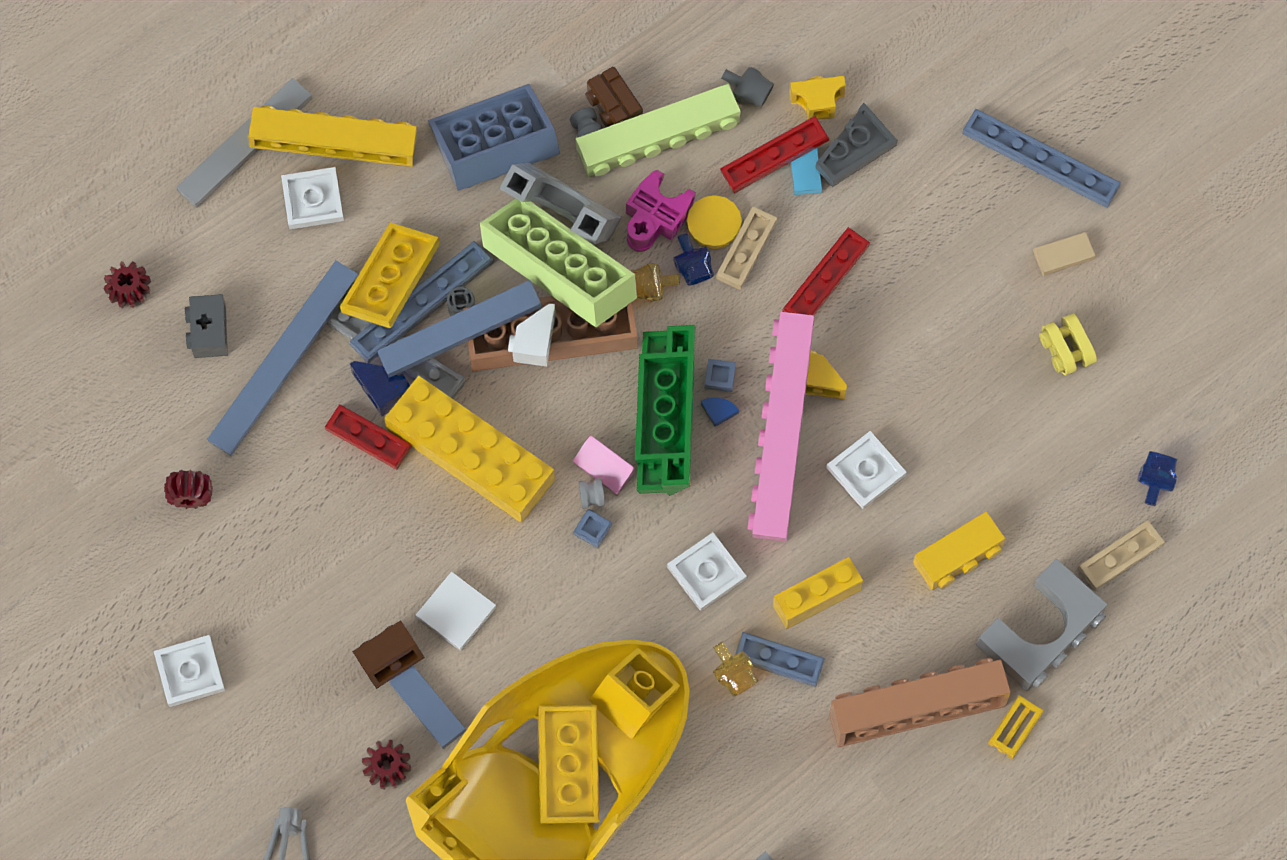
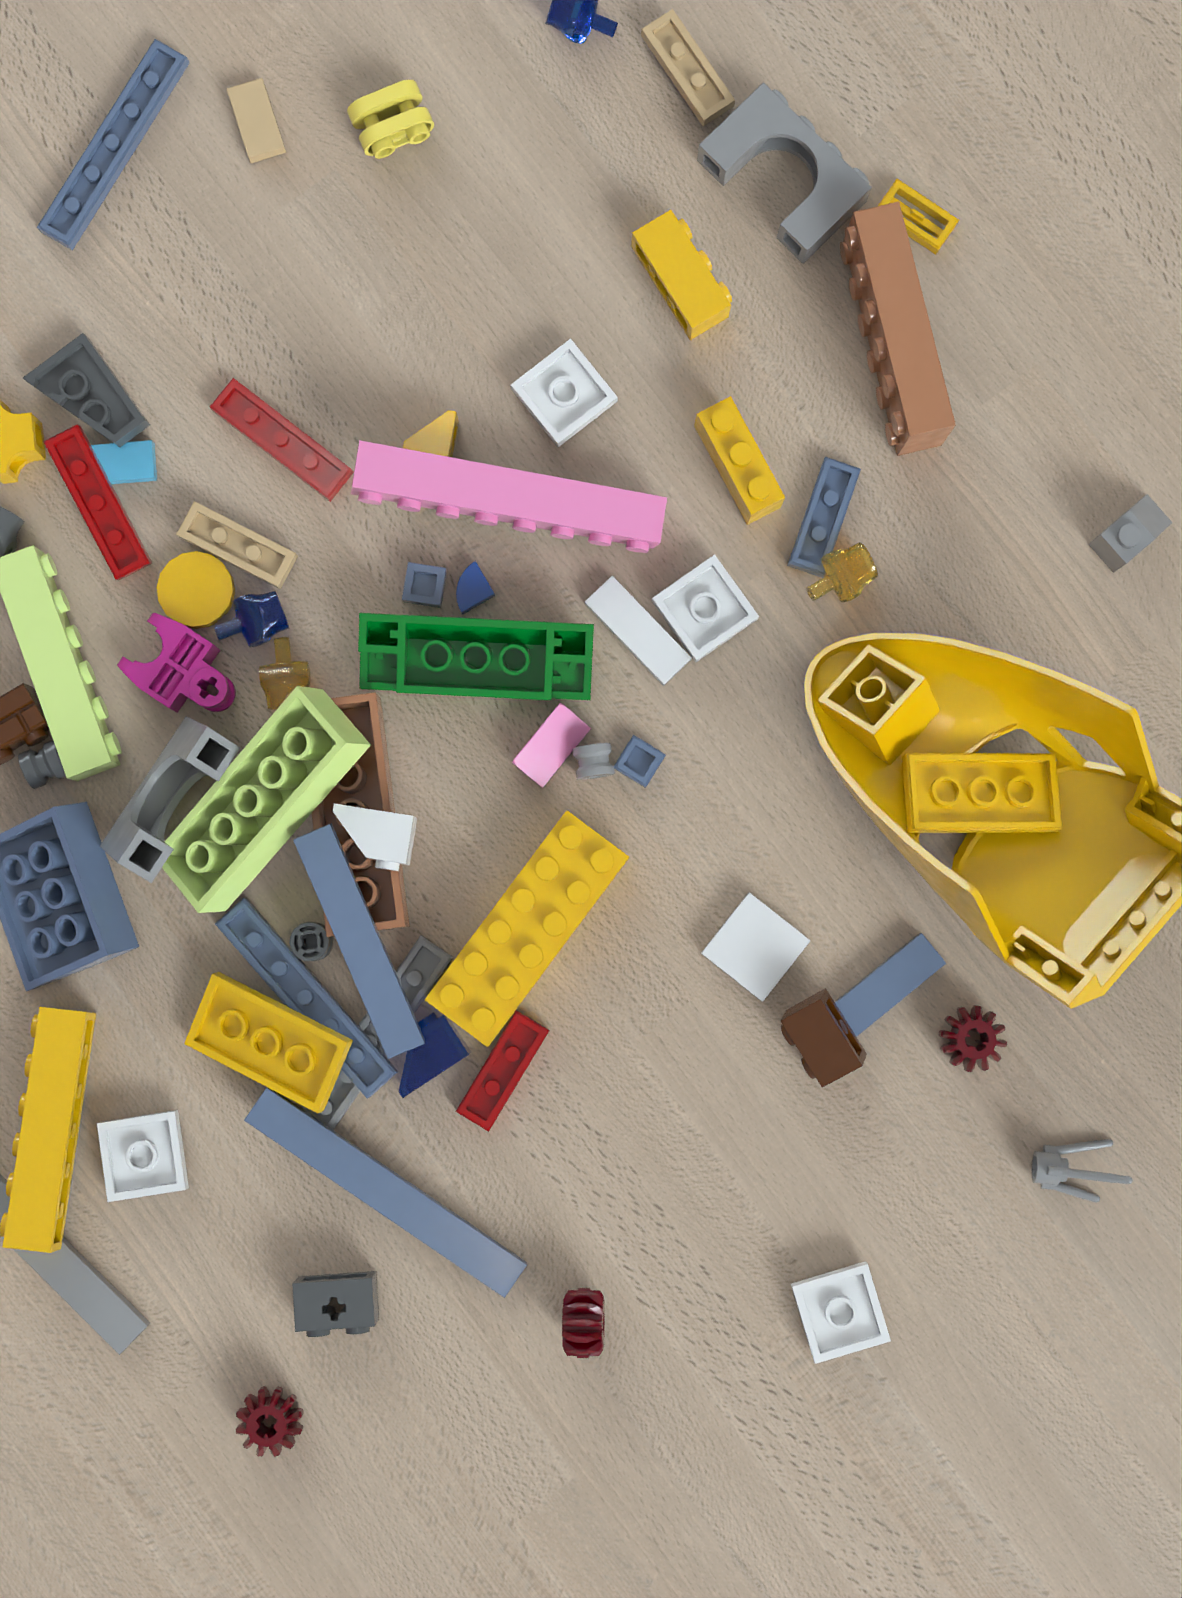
camera: 90 degrees left, 15 degrees up
(690, 525) = (637, 630): none -> white tile

